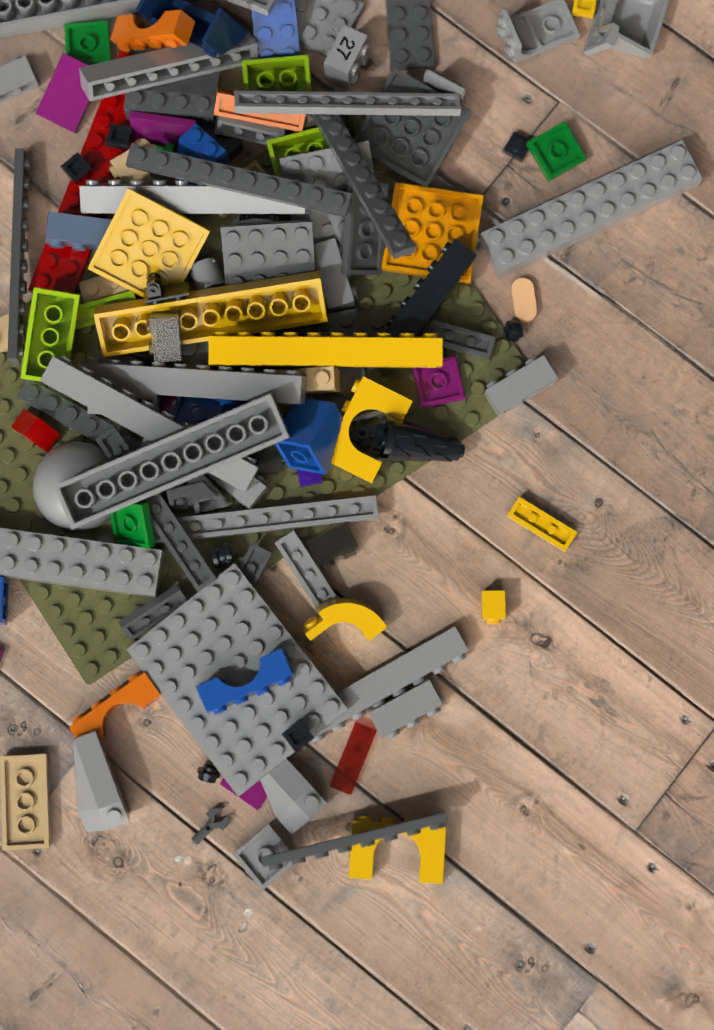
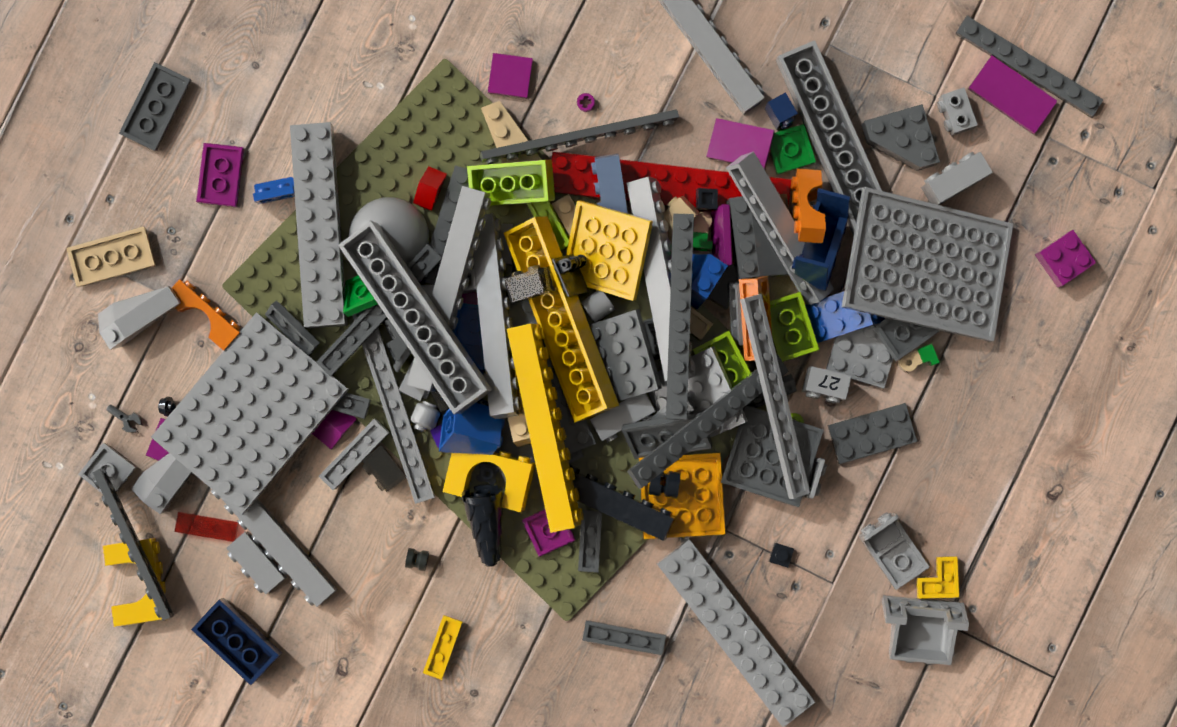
camera: 75 degrees right, 5 degrees up
(45, 41) = (781, 111): none -> dark blue brick
(76, 168) = (669, 168): black plate -> none
(221, 555) = (354, 375): black wheel -> none
(273, 669) = (231, 401): blue arch -> none
(275, 592) = (333, 428): none -> magenta slope
(284, 486) = (425, 416): none -> light grey head
(298, 735) = (208, 477): black plate -> none
(347, 611) = (327, 493): yellow arch -> none
(422, 238) = (671, 487): none -> black wheel
(439, 531) = (421, 561): none -> pearl dark grey wheel
(488, 748) = (236, 641): none -> dark blue brick
(493, 606) = (361, 619): yellow brick -> none
(513, 330) = (610, 586): black plate -> none
(520, 385) = (560, 603): light grey brick -> none
(523, 300) = (640, 589): light nougat tile -> none
(556, 151) = (782, 590): green plate -> none
(572, 327) = (624, 637): none -> dark grey plate

